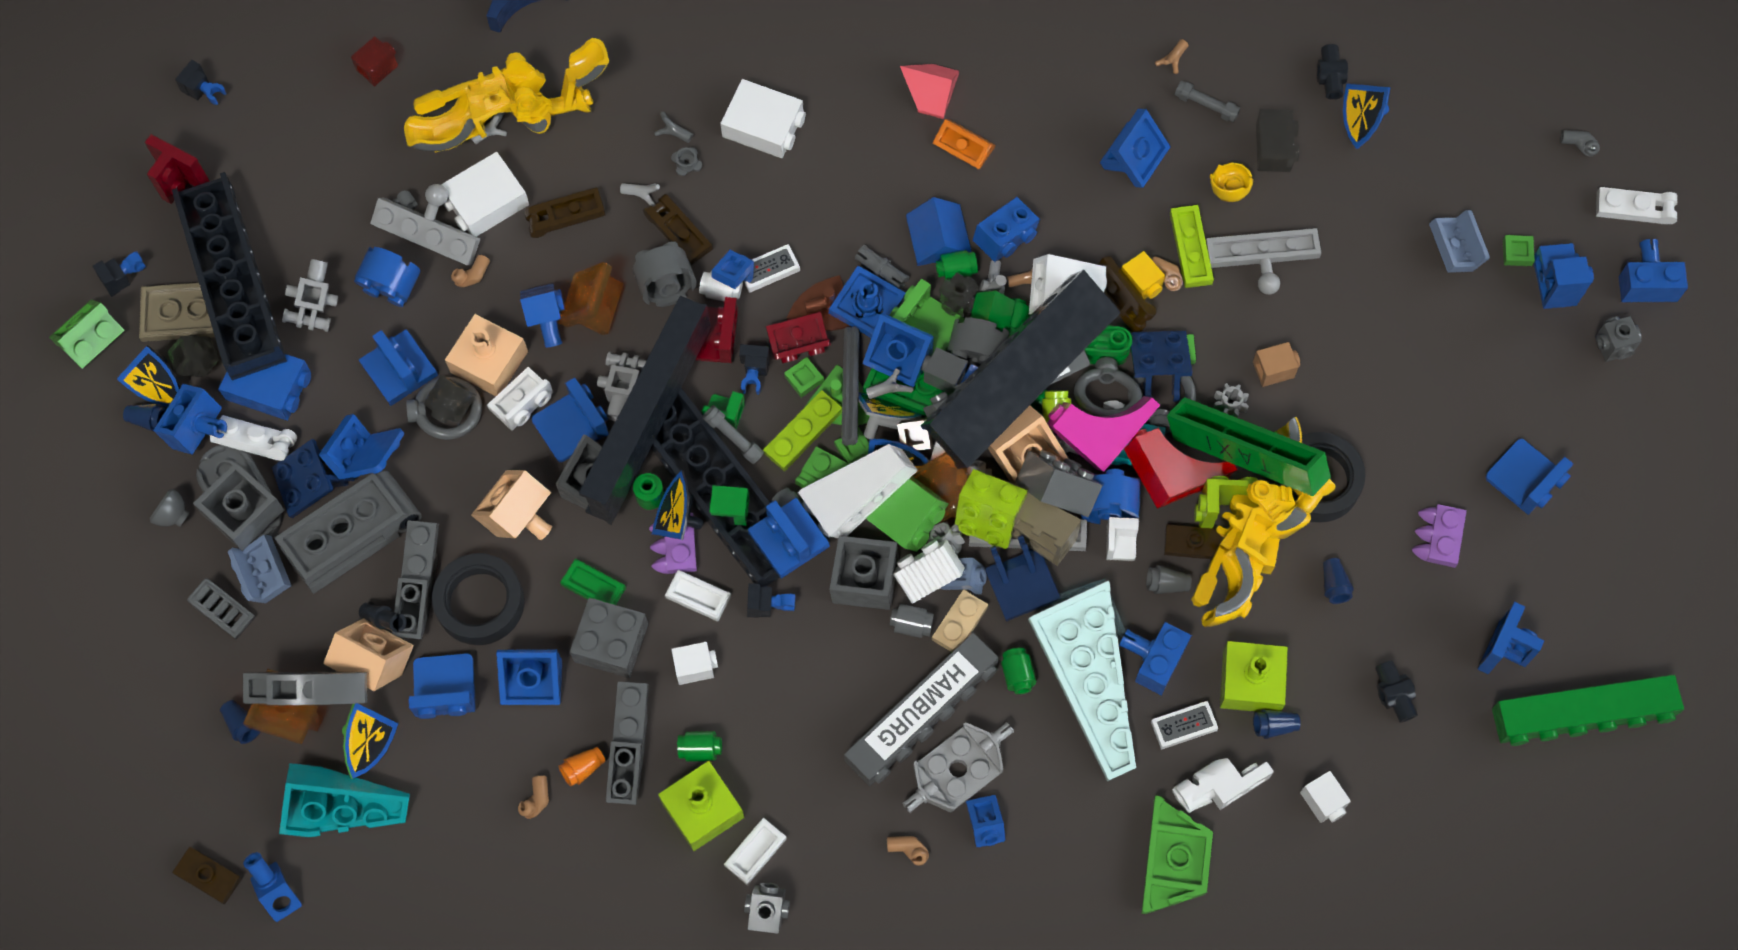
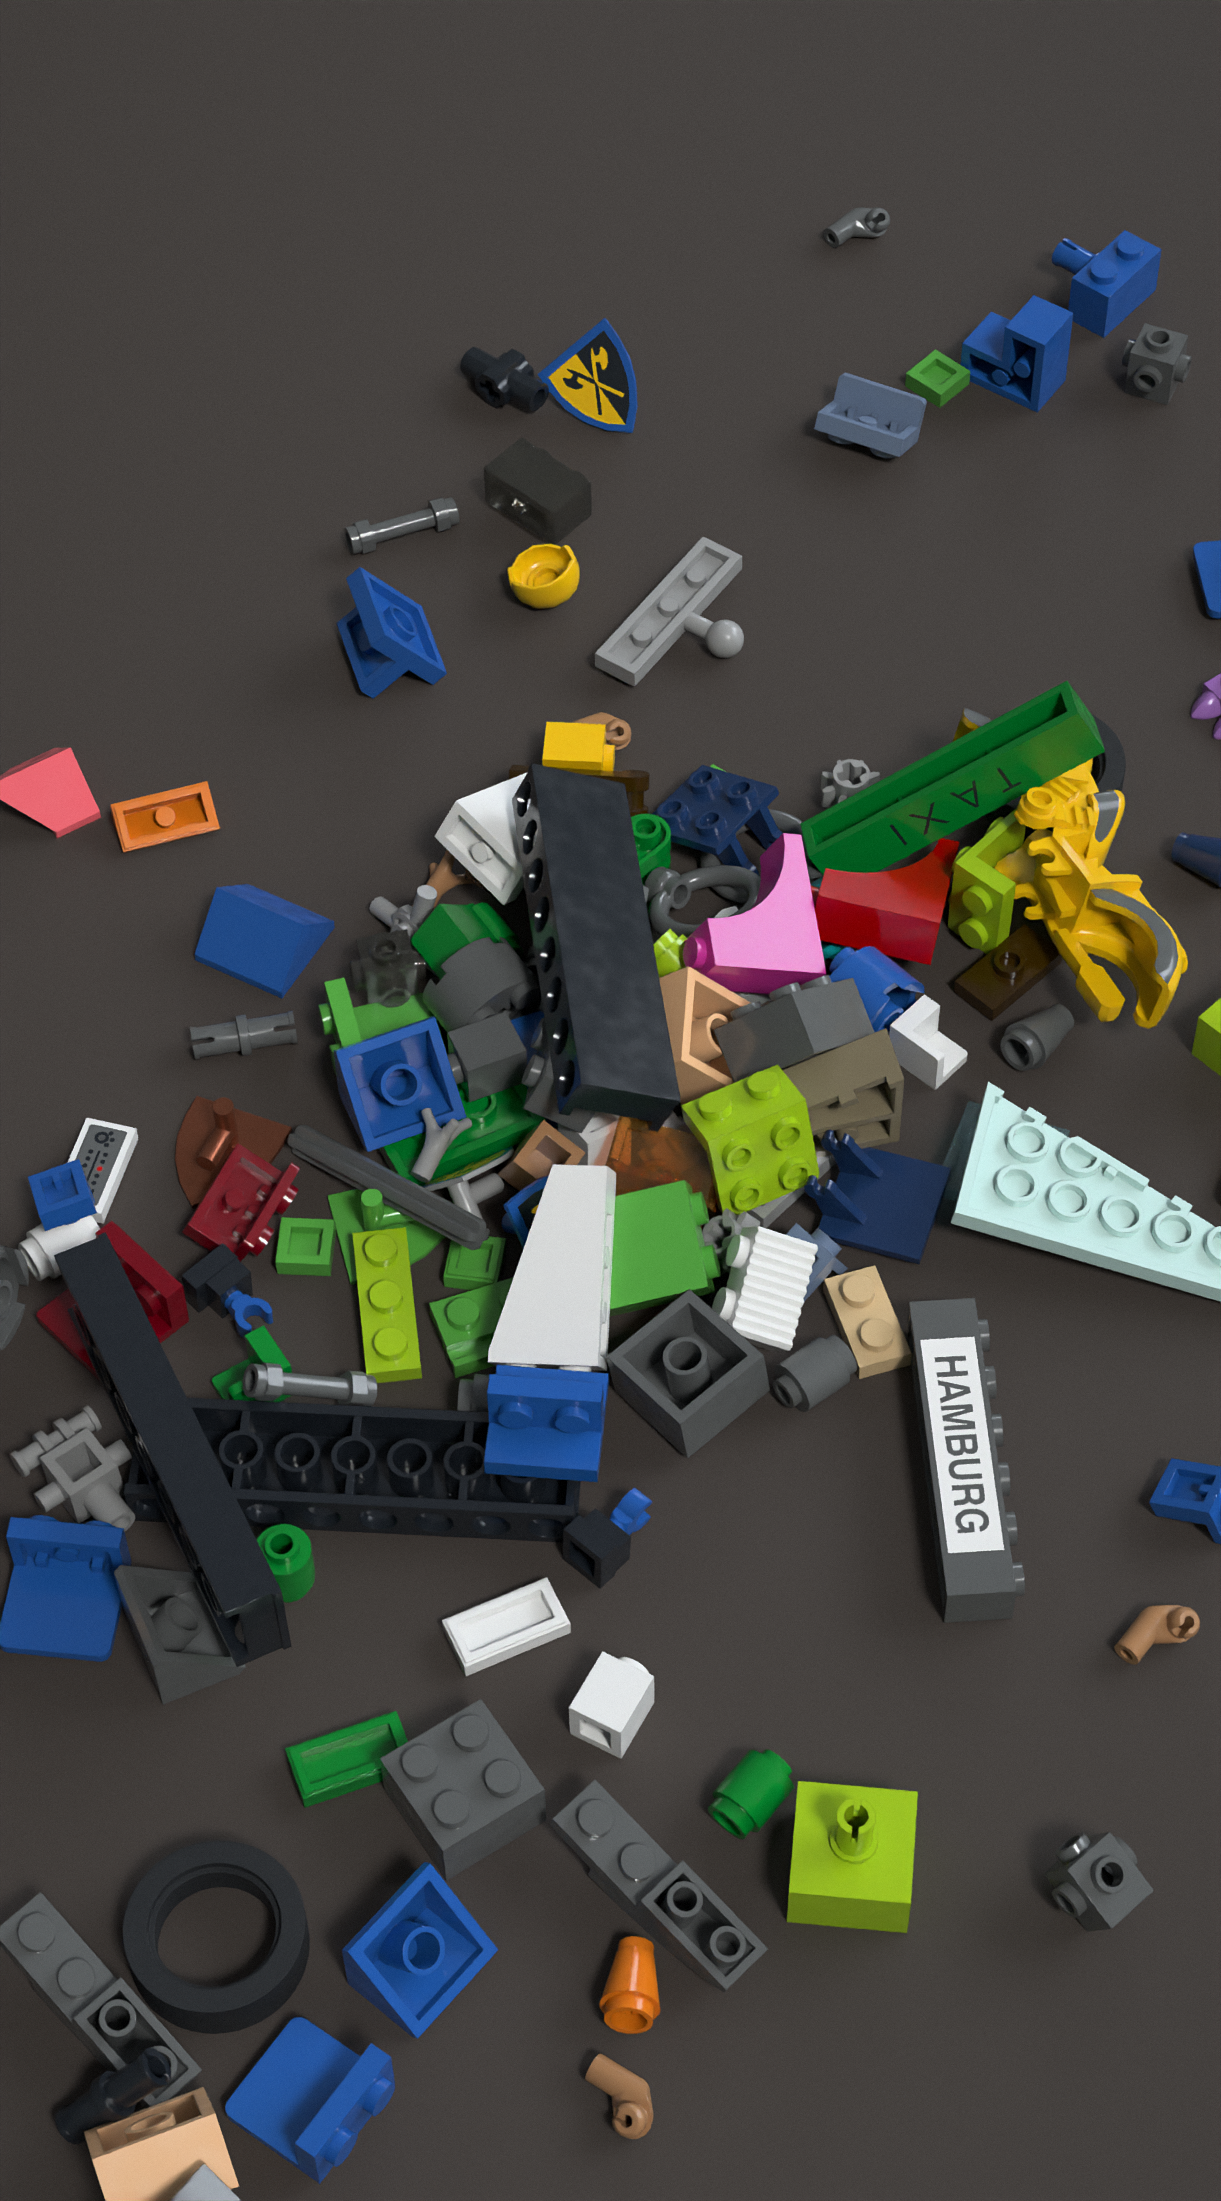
camera: 50 degrees left, 15 degrees down
(513, 506) = (122, 1759): light nougat brick -> none
(675, 510) = (355, 1540): shield -> none
(679, 553) = (396, 1595): medium lavender plate -> none
(730, 503) = (424, 1448): green panel -> none
(755, 851) = (984, 1842): white tile -> none
(871, 294) = (273, 1076): blue plate -> none
(959, 261) = (335, 944): green brick -> none
(968, 746) = (1098, 1438): light grey plate -> none
(1006, 230) = (349, 851): blue brick -> none
(1018, 671) = (1010, 1299): green brick -> none
(1159, 655) = (1146, 1117): blue brick -> none
(1174, 56) = (299, 515): medium nougat bar -> none
(1191, 246) = (586, 679): lime plate -> none
(1276, 364) = (846, 708): medium nougat brick -> none
(1636, 205) = (994, 236): white plate -> none

